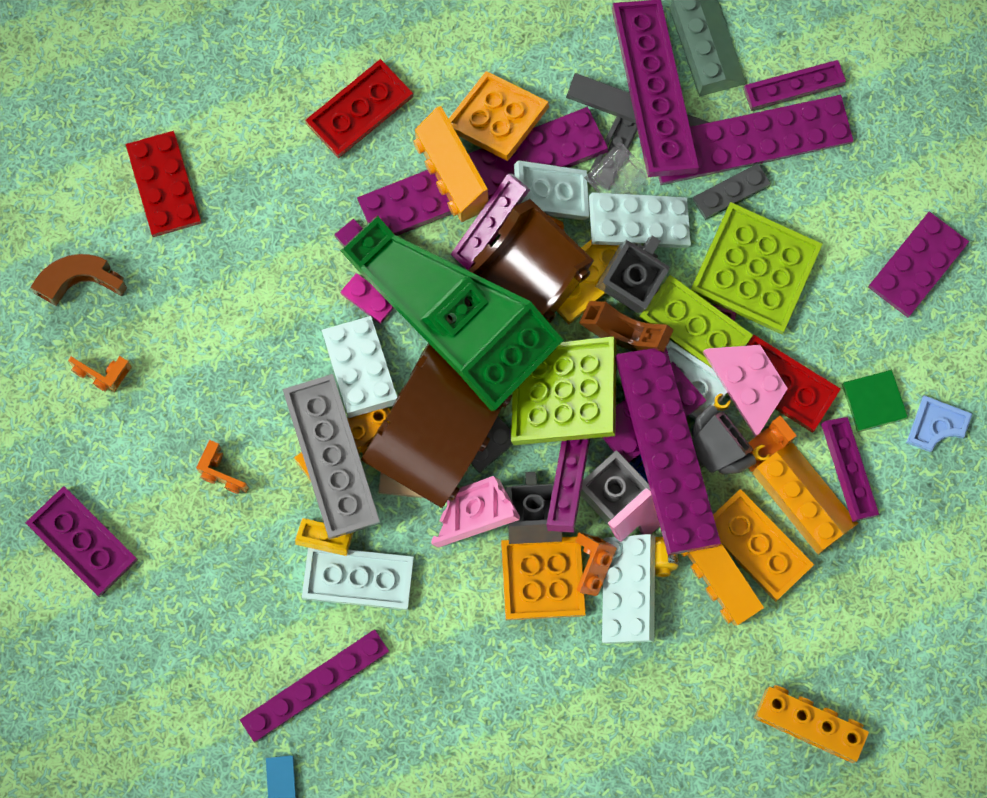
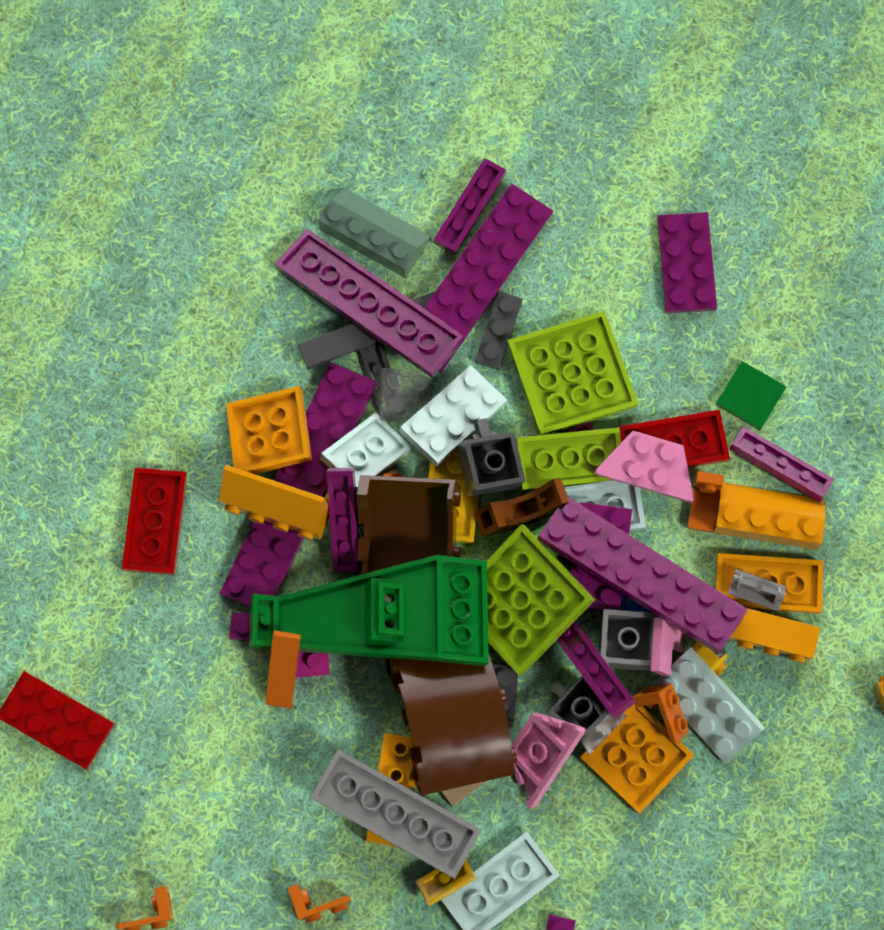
camera: 35 degrees left, 0 degrees up
(73, 269) = (46, 861): dark orange arch -> none
(349, 287) = (283, 669): none -> orange tile
(359, 367) = (348, 723): light aqua plate -> none
(720, 444) = (672, 531): dark grey torso -> none
(743, 539) = (757, 590): none -> light grey hinge
(936, 422) = (809, 372): light blue tile -> none

